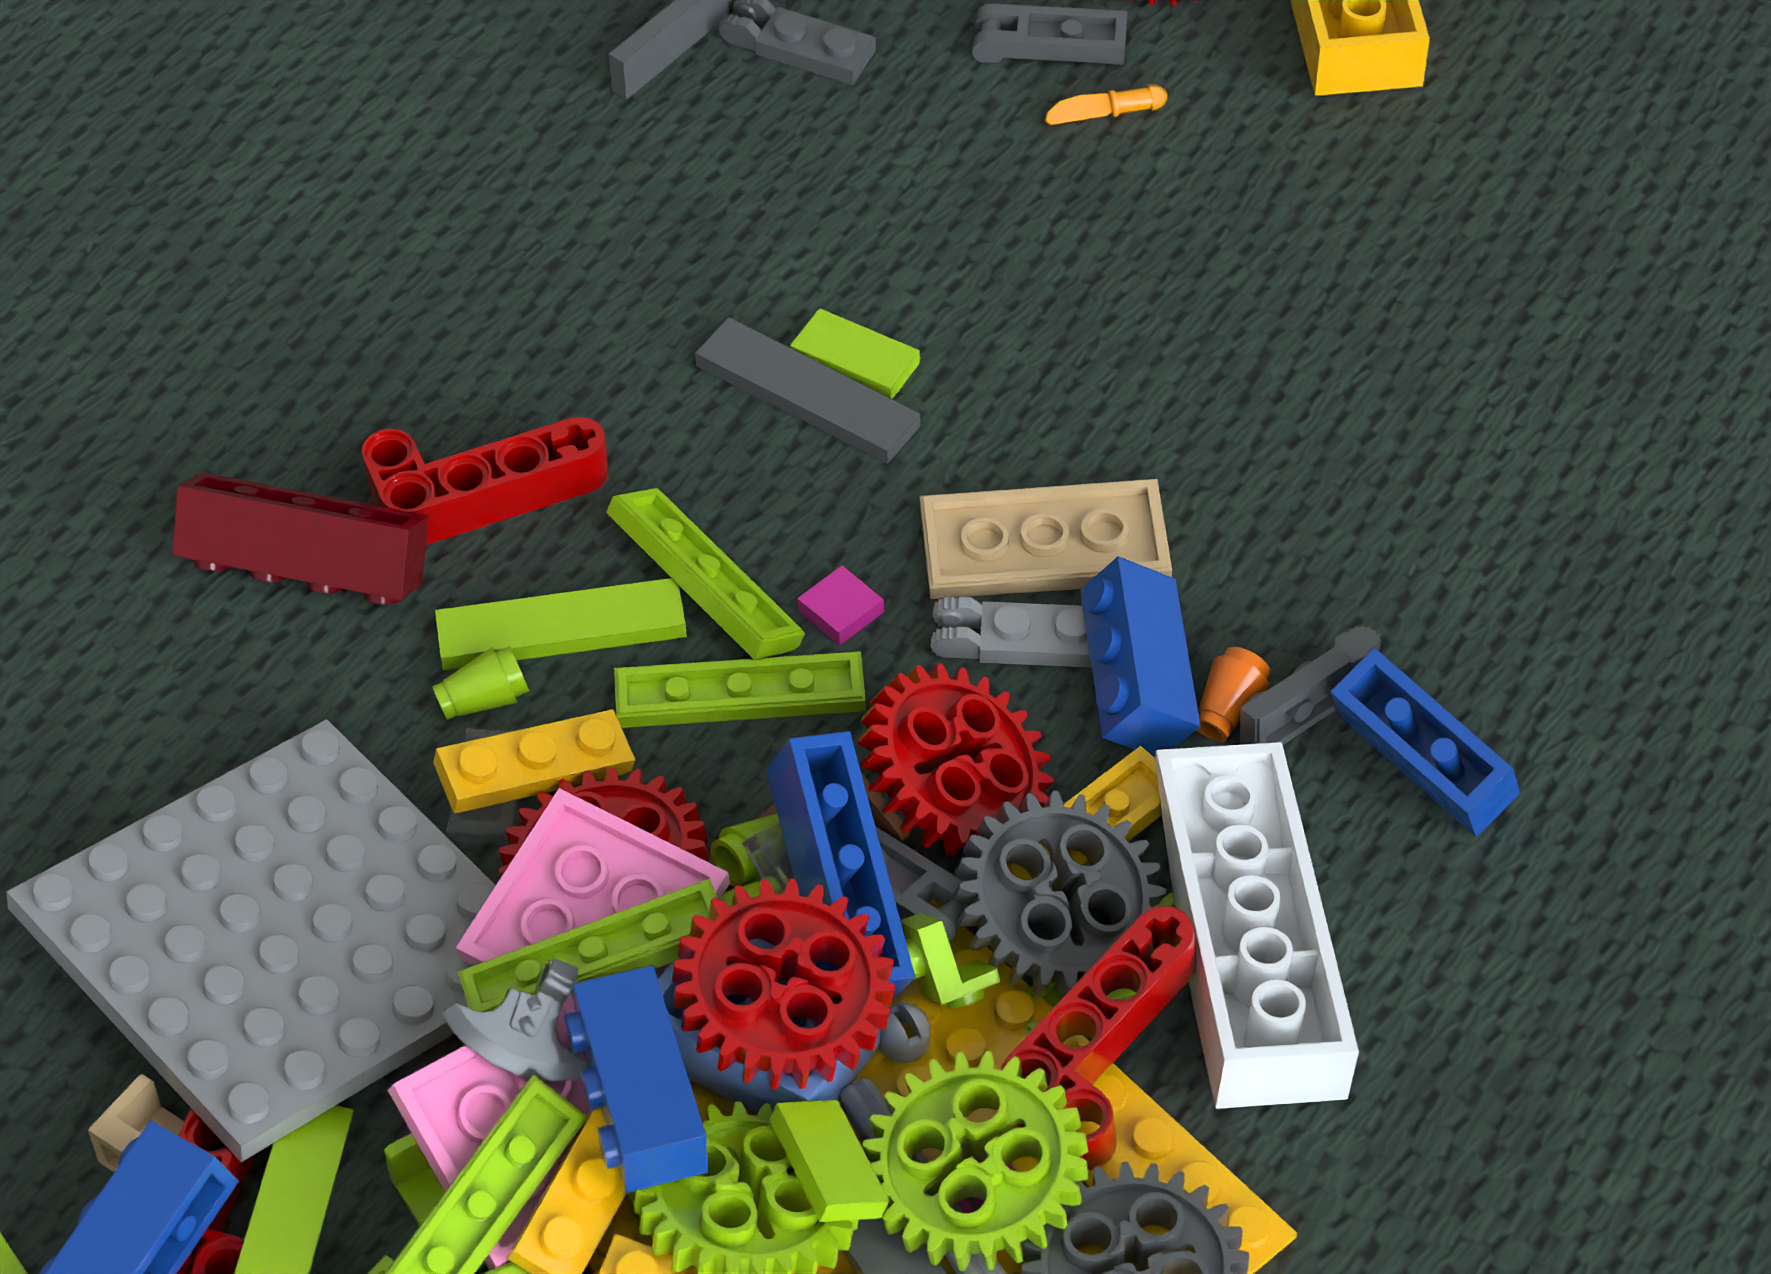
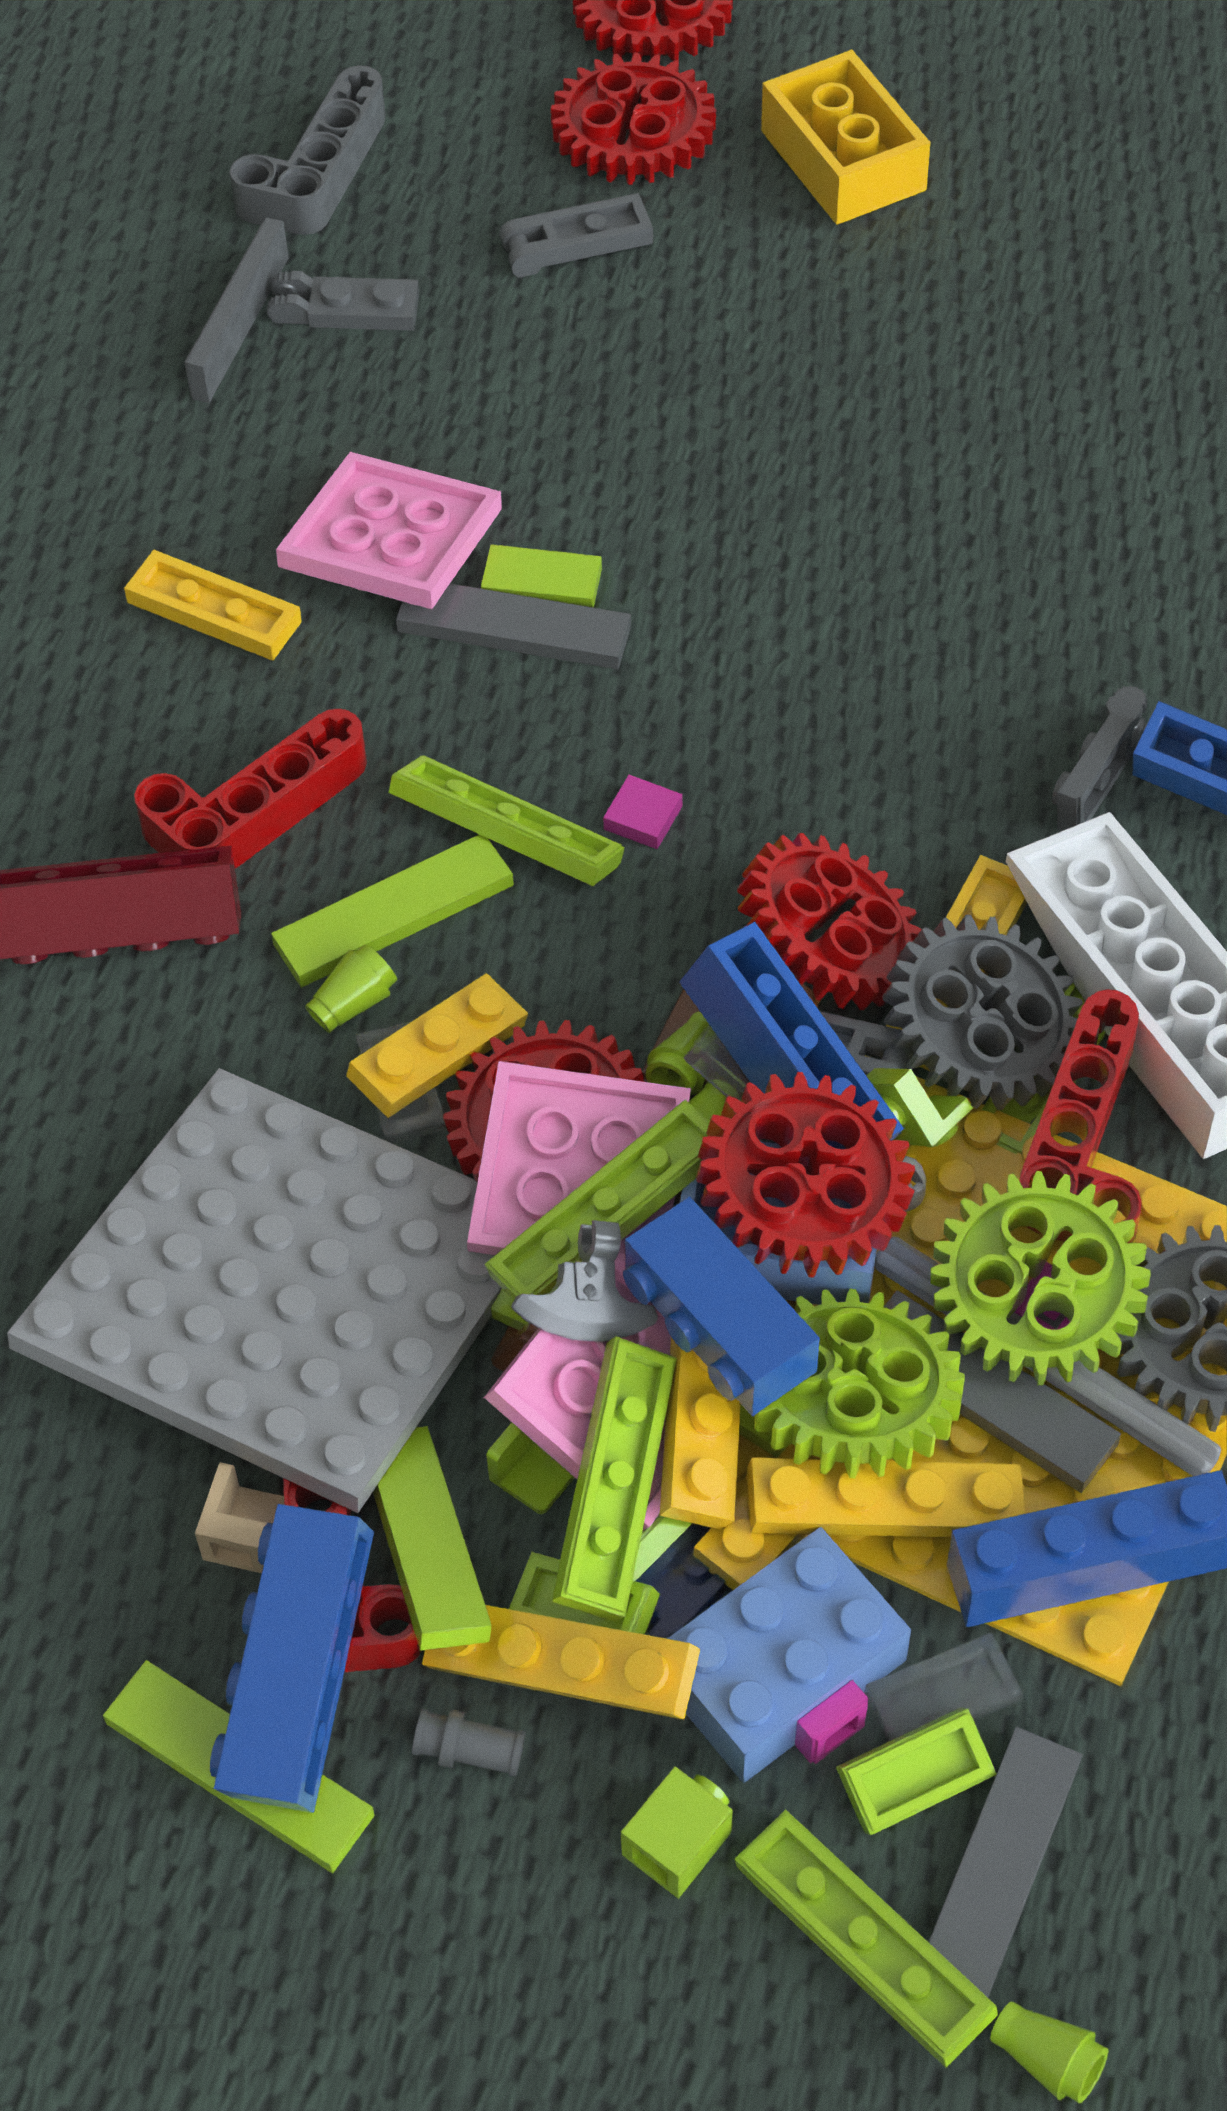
camera: 20 degrees left, 5 degrees up
(532, 289) = (213, 604): none -> yellow plate
(727, 266) = (389, 530): none -> bright pink plate
(739, 689) = (588, 918): lime tile -> none
(828, 1160) = (916, 1323): lime tile -> none
(1011, 632) = (817, 786): light grey hinge -> none
(1040, 536) = (795, 695): tan tile -> none
(1101, 105) = (655, 284): light orange piece -> none
(1139, 657) = (942, 775): blue brick -> none
(1229, 686) = (1031, 779): orange cone -> none

